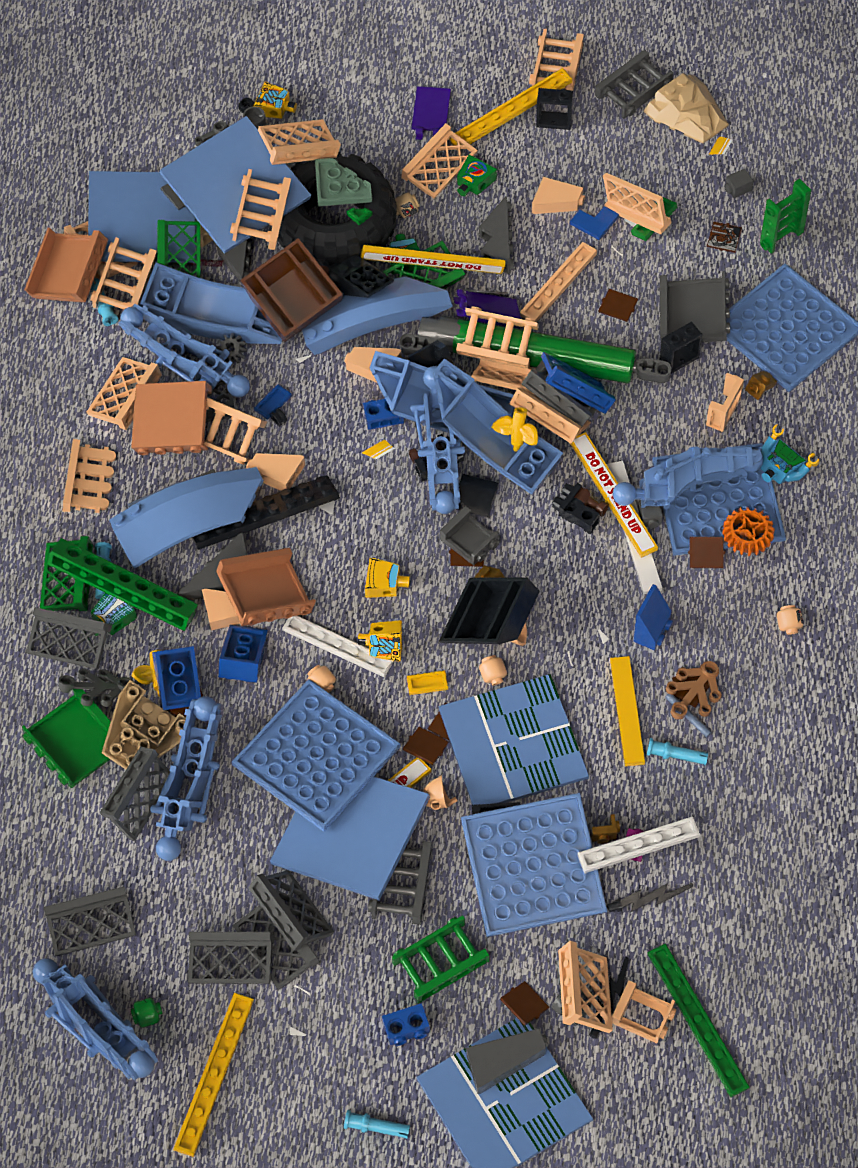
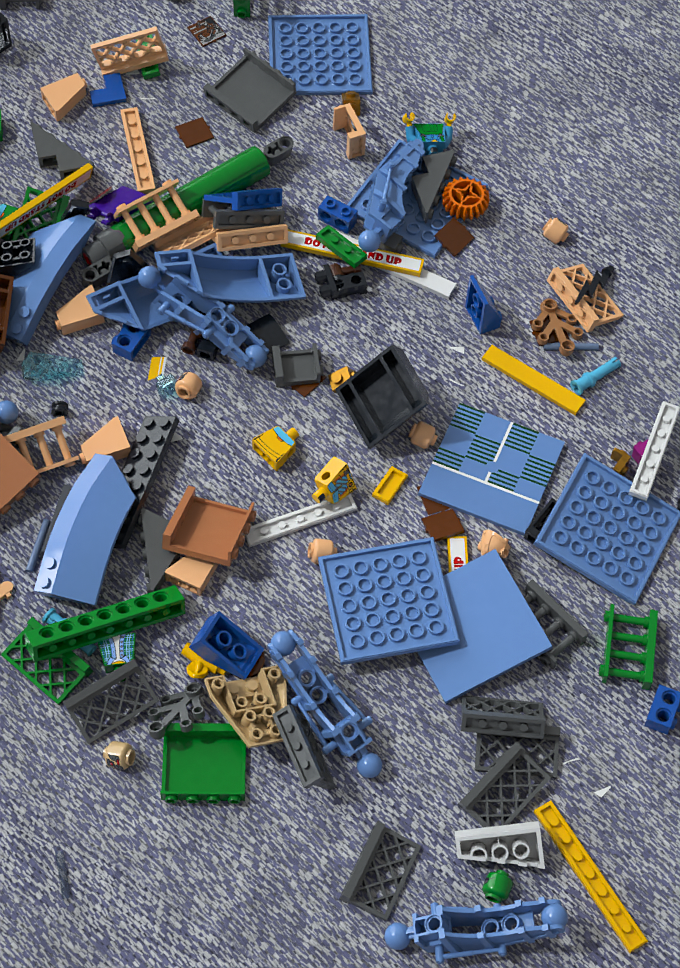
camera: 55 degrees left, 0 degrees up
(32, 678) = (119, 755): none -> tan head
(180, 989) = (502, 844): none -> white wedge
(242, 653) = (246, 587): blue slope -> none
(274, 399) = (39, 403): blue tile -> none
(308, 384) = (50, 367): none -> clear light blue slope
(365, 467) = (165, 385): none -> clear light blue tile
(379, 481) = (188, 385): none -> light nougat head
(448, 283) = (75, 208): none -> black plate
(517, 428) = (249, 261): yellow plant -> none
(604, 480) = (341, 246): none -> green plate
(638, 455) = (337, 214): none -> blue brick
(675, 349) = (278, 117): black window -> none
(731, 496) = (429, 185): none -> dark grey slope
(731, 682) = (582, 311): none -> light nougat fence
(772, 684) = (601, 279): none -> black piece

